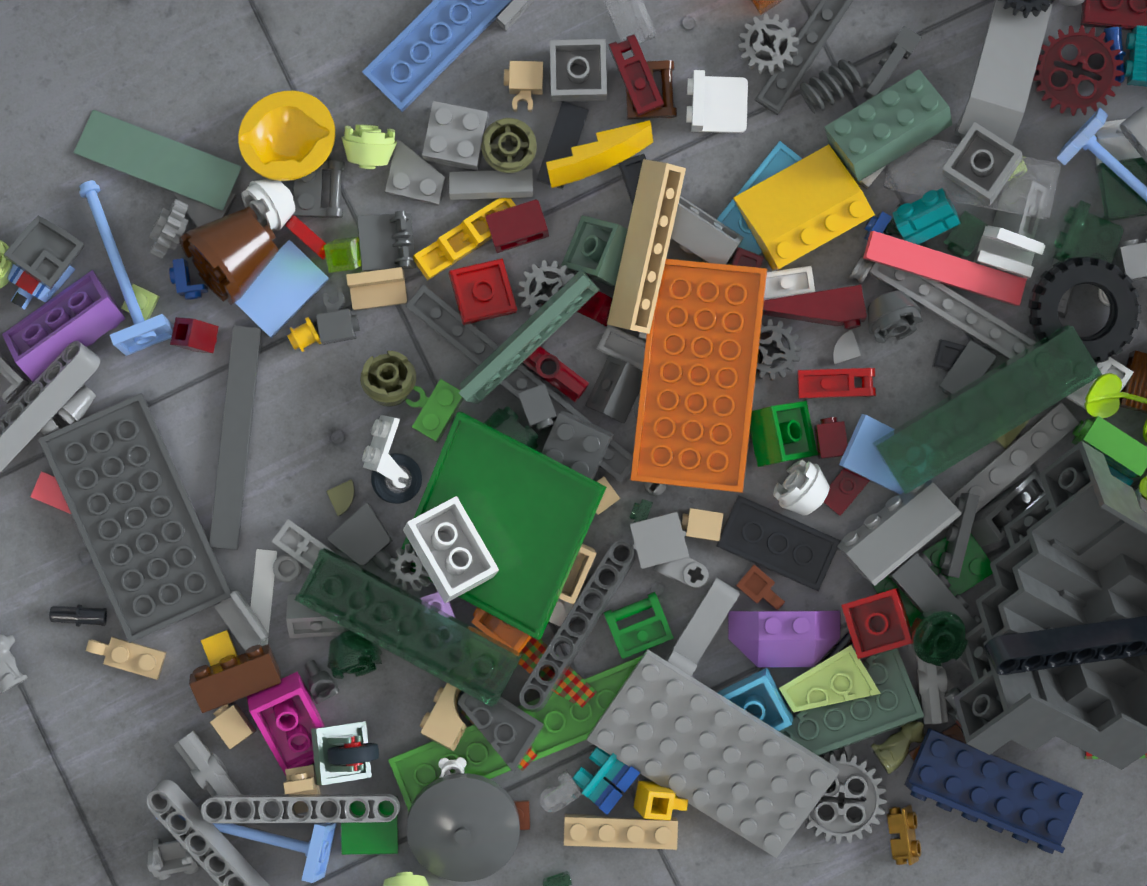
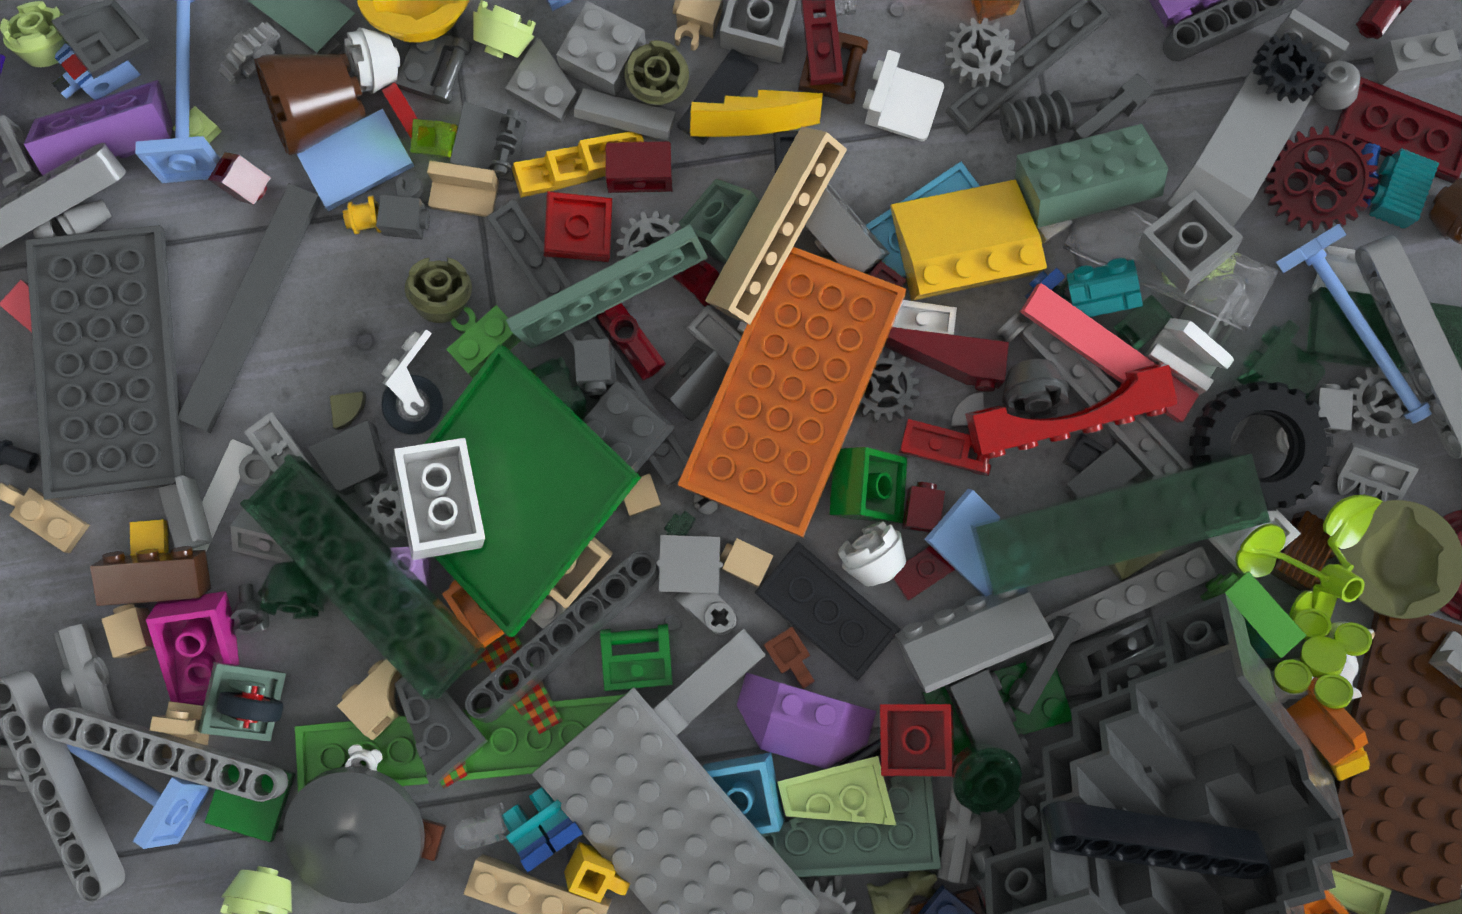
camera: 15 degrees right, 5 degrees down
(181, 277) = (249, 117): blue bracket -> none
(980, 294) = (1143, 391): none -> red arch

